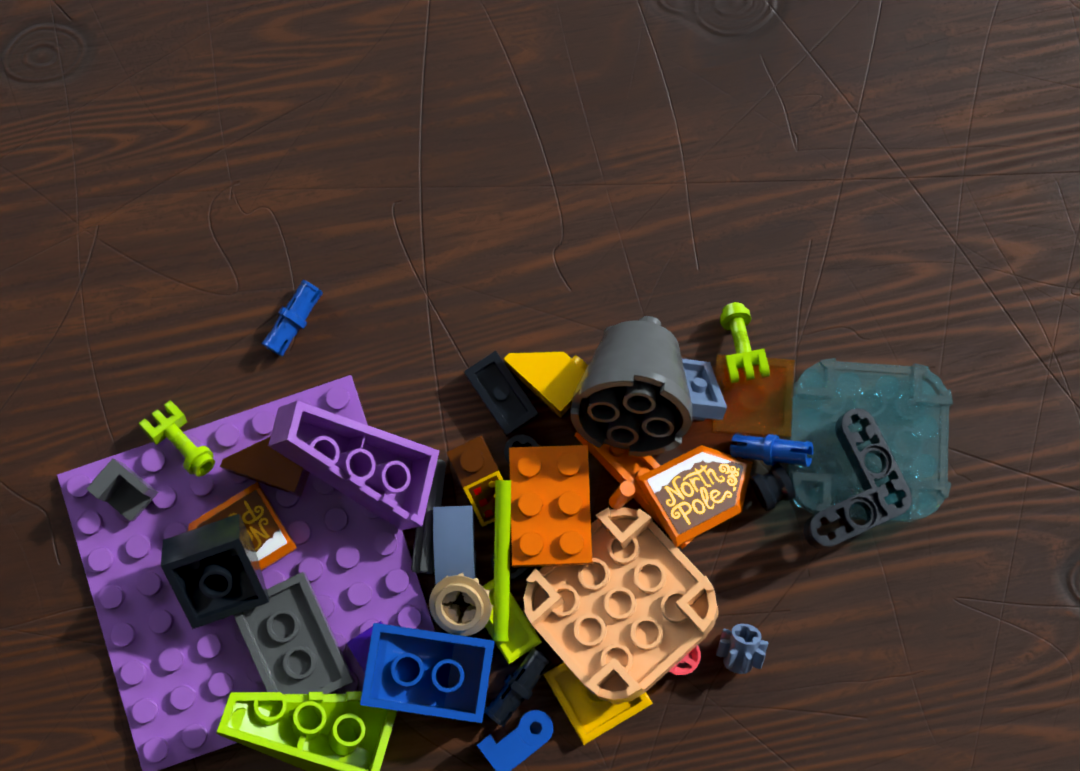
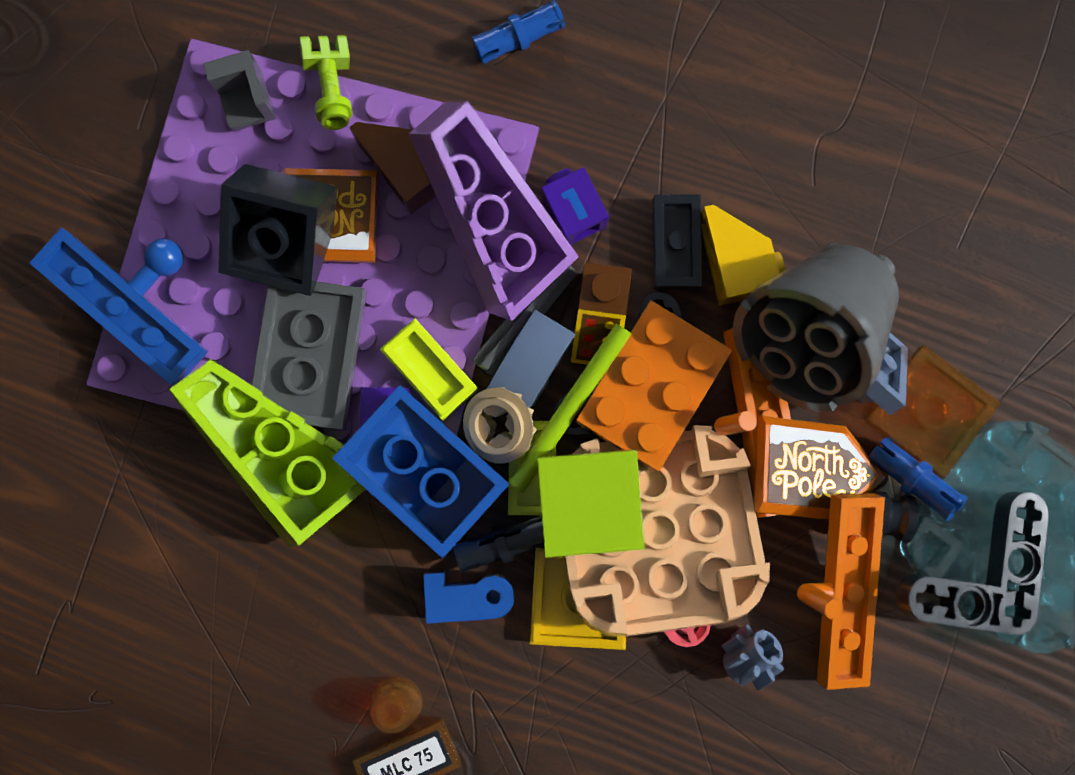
camera: 30 degrees right, 5 degrees up
(136, 698) = (122, 304): none -> blue plate
(385, 598) = (429, 369): none -> neon yellow tile
(412, 415) = (574, 204): none -> dark purple brick
(559, 616) = (591, 503): none -> lime tile
(736, 318) = (965, 322): lime hinge -> none
(775, 558) = (849, 590): none -> orange plate

